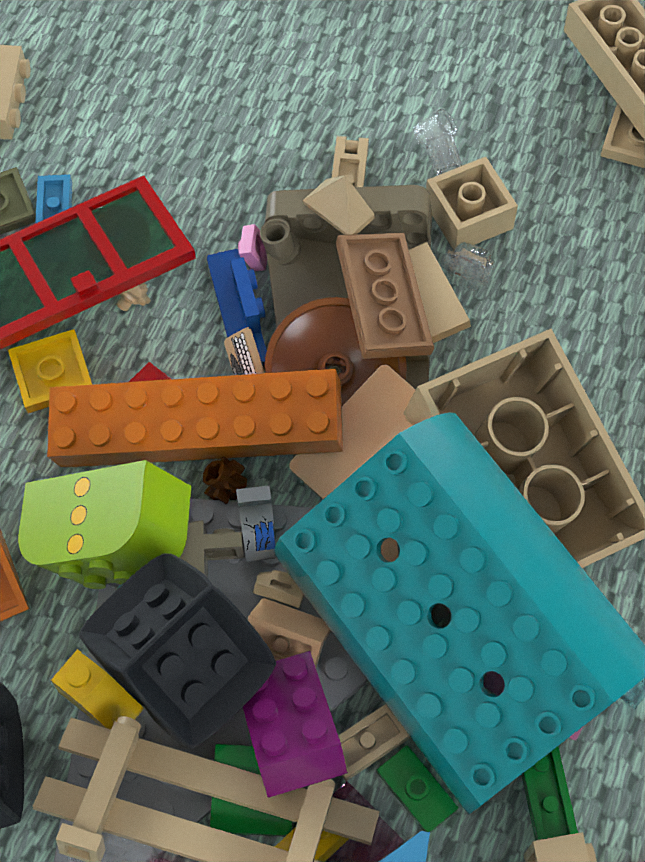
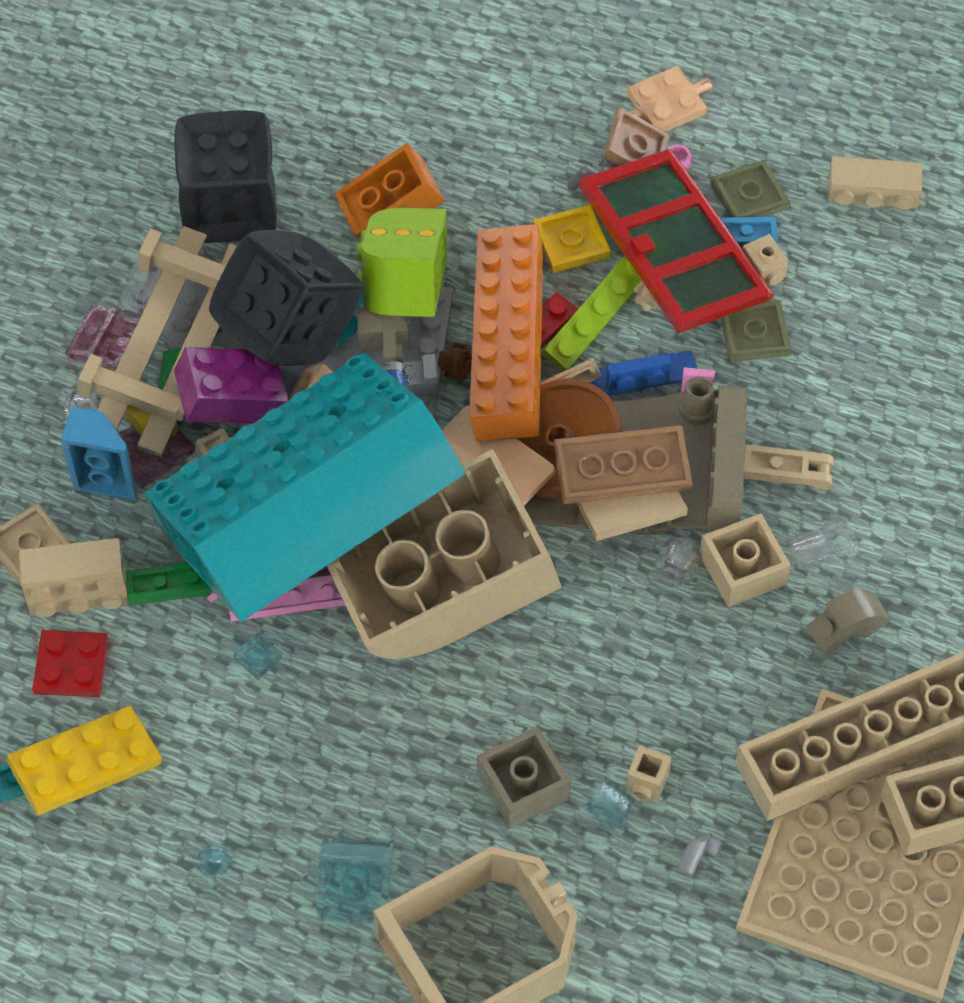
camera: 90 degrees right, 5 degrees down
(93, 181) = (767, 259): none -> tan brick
(149, 342) = (592, 316): none -> lime plate
(186, 198) = (756, 333): none -> olive tile
(340, 205) = (718, 432): tan slope -> none
(527, 119) = (847, 615): none -> dark tan brick

